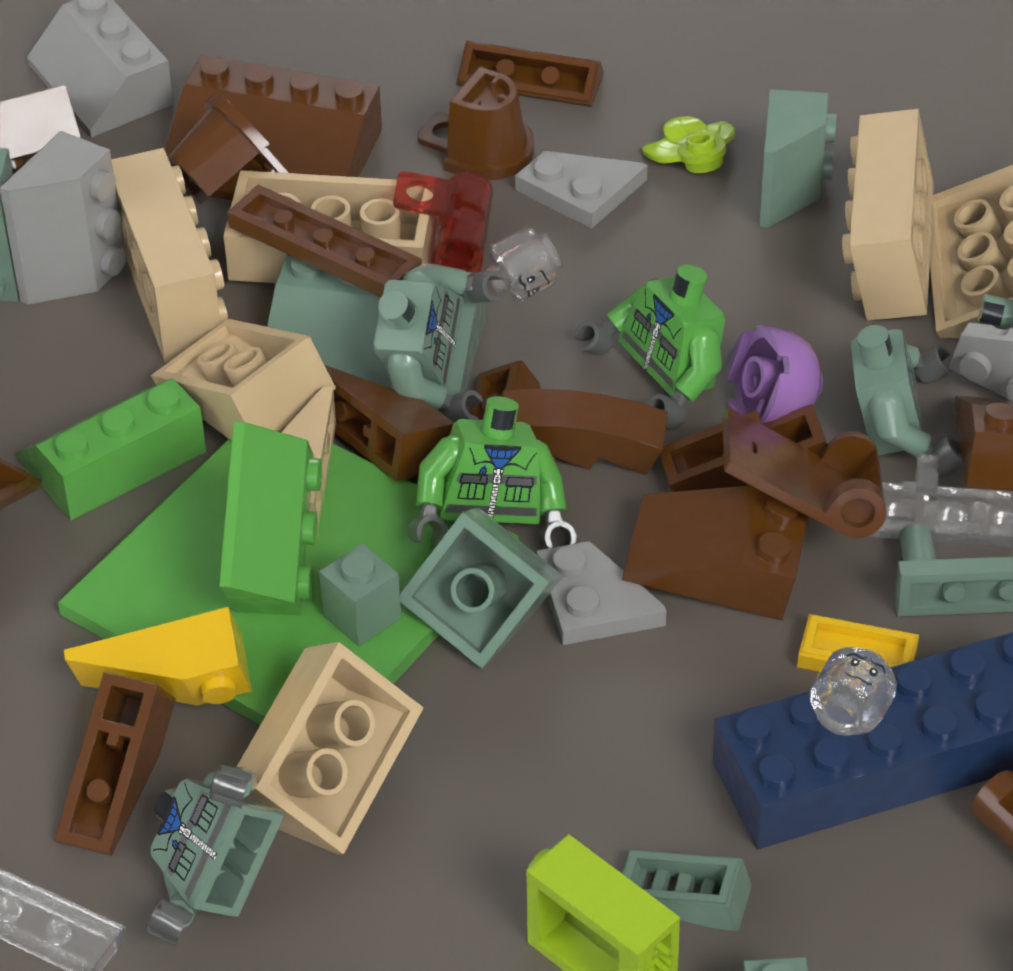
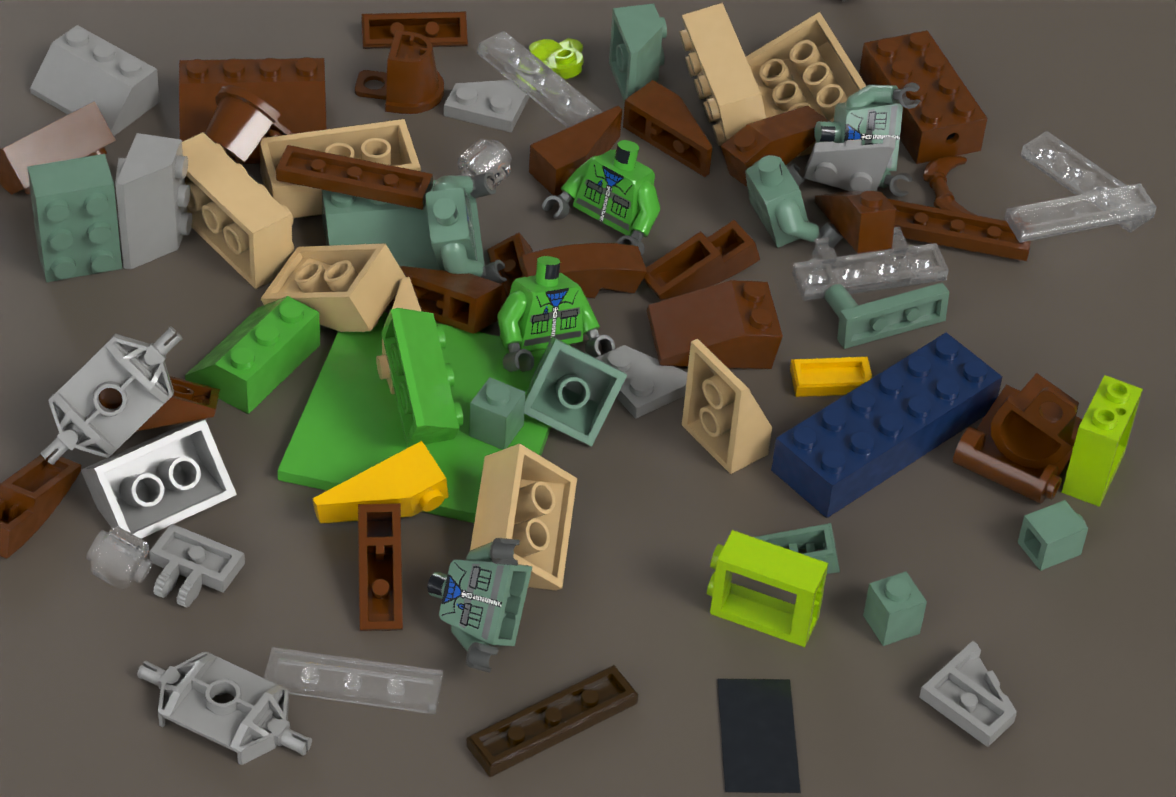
camera: 25 degrees left, 0 degrees up
(463, 215) = (428, 138): clear red piece -> none
(624, 266) = (560, 154): none -> reddish brown slope
(652, 171) = (536, 79): none -> clear plate
(665, 665) = (723, 412): none -> tan slope
(773, 373) = (694, 205): medium lavender cylinder -> none
(790, 253) = (668, 125): none -> reddish brown slope
(835, 488) = (774, 265): reddish brown door -> none
(853, 691) = (866, 396): clear head -> none
(922, 306) = (778, 135): none -> reddish brown slope

